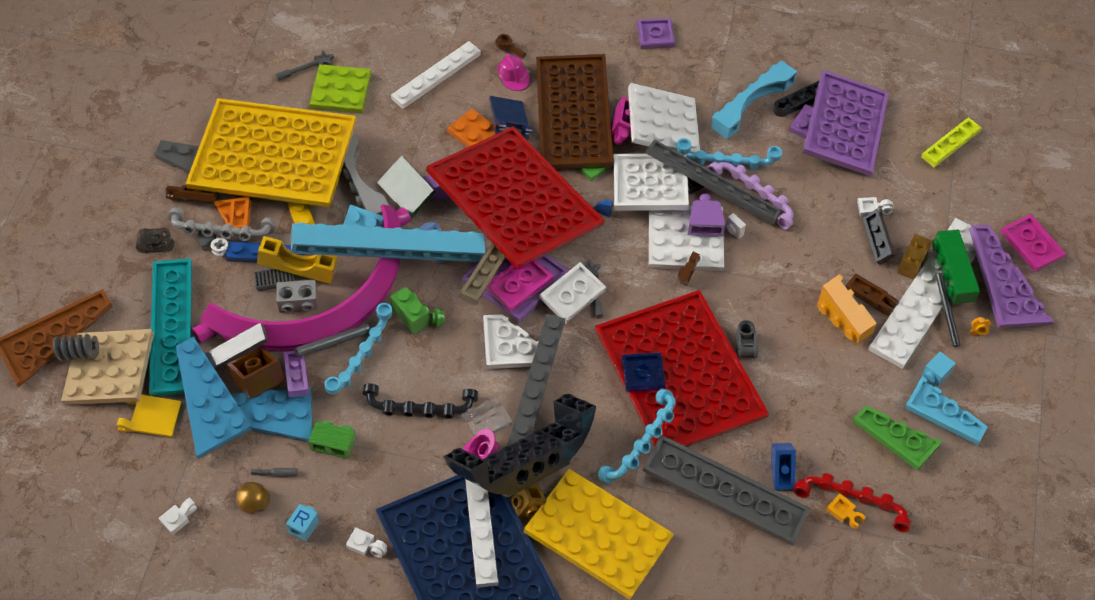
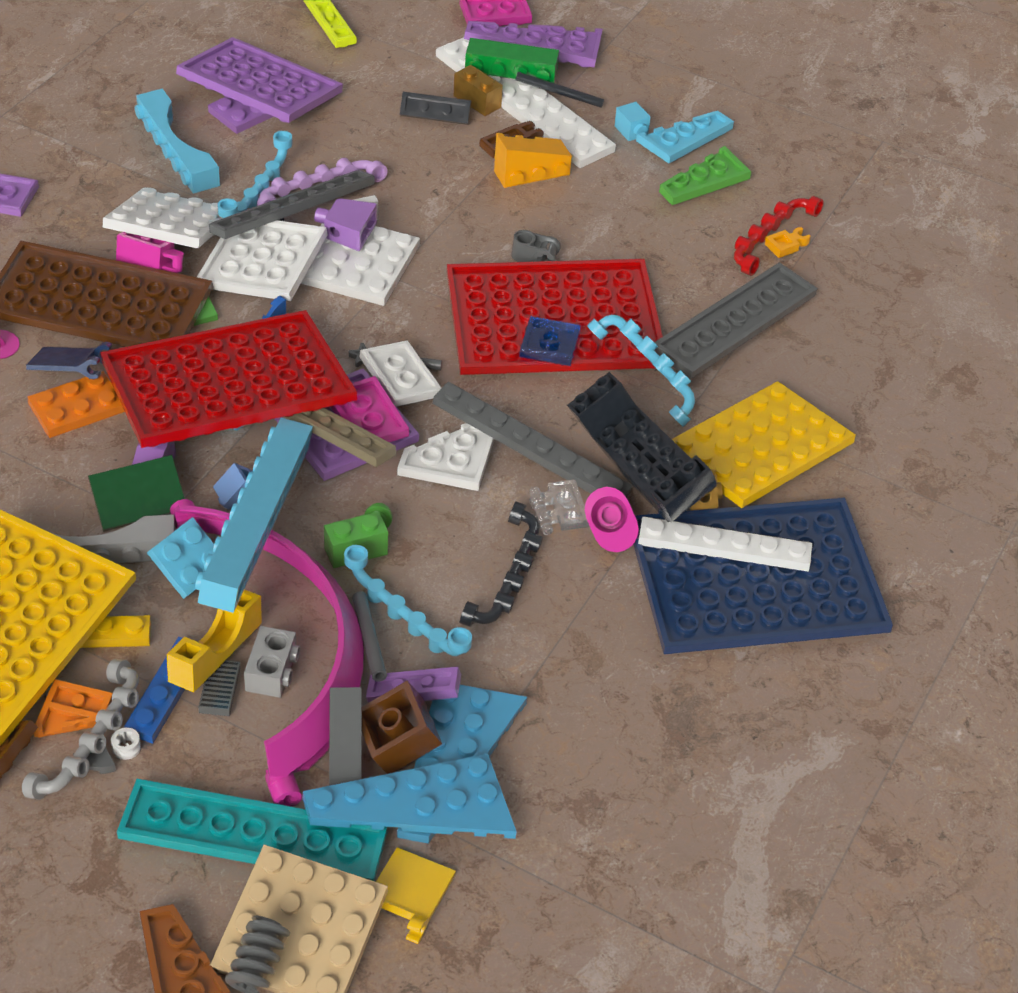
camera: 75 degrees left, 10 degrees down
(153, 239) = (71, 823): clear smoke piece -> none
(176, 517) = (601, 888): white plate -> none
(252, 497) = (598, 786): pearl gold hair -> none
(276, 472) = (563, 751): dark grey piece -> none
(303, 522) = (660, 732): medium azure brick -> none
(332, 439) = (536, 670): bright green brick -> none
(363, 541) = (706, 680): white plate -> none
(685, 273) = (416, 263): reddish brown plate -> none
(783, 465) = (714, 267): blue slope -> none
(799, 95) = (195, 105): black beam -> none
(869, 204) = (390, 101): white plate -> none
(980, 326) = (588, 77): light orange plate -> none

